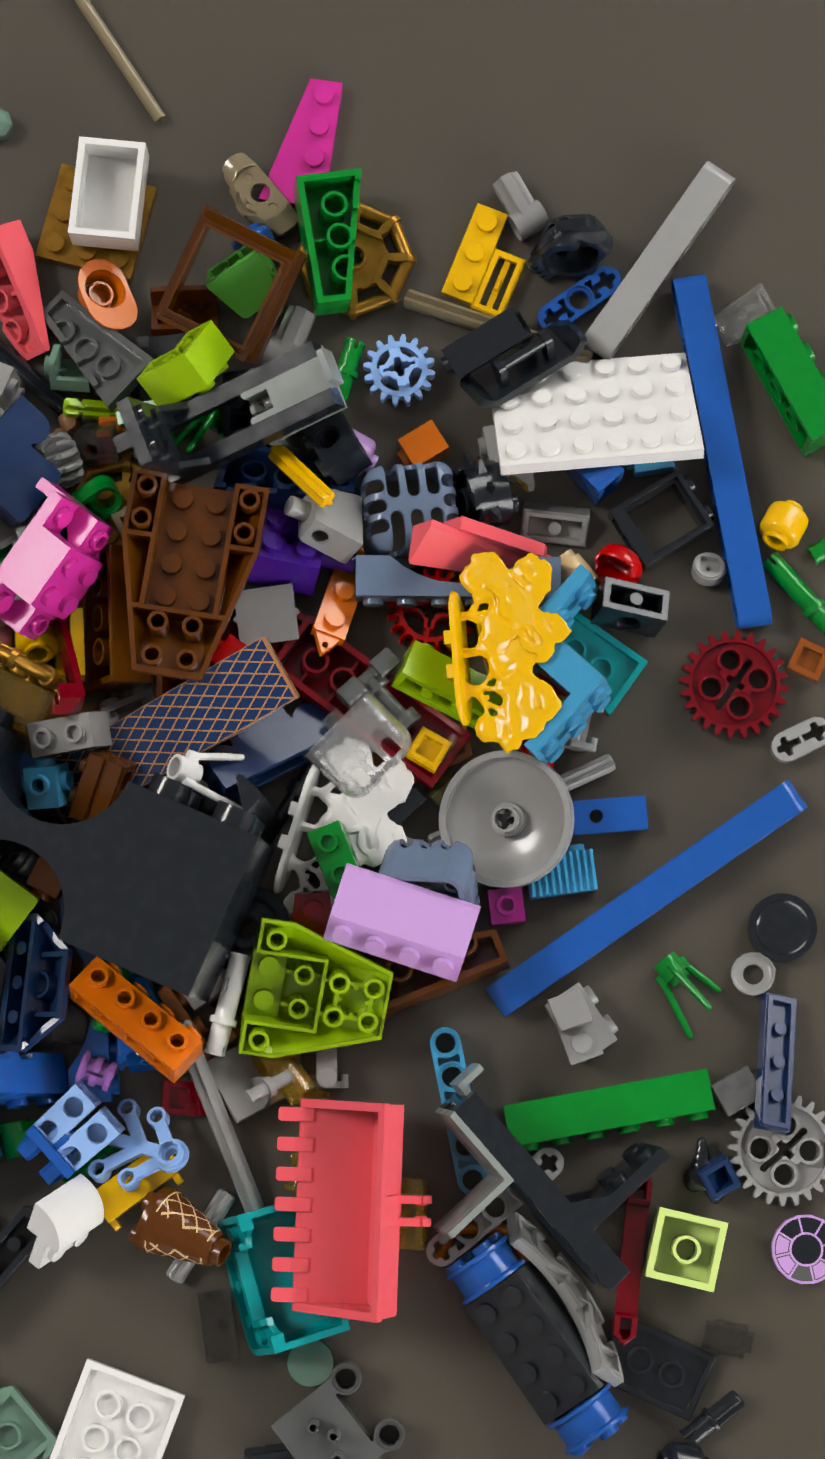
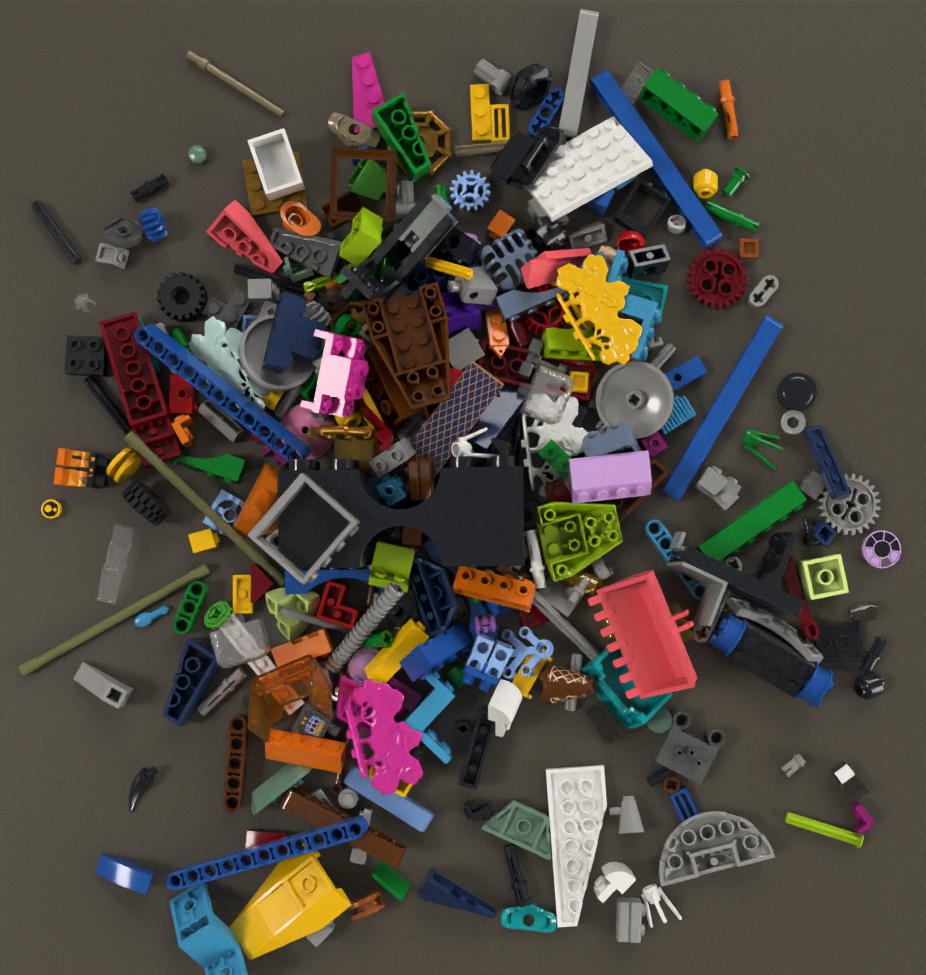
camera: 25 degrees left, 5 degrees up
(371, 631) = (518, 334): none -> dark red brick

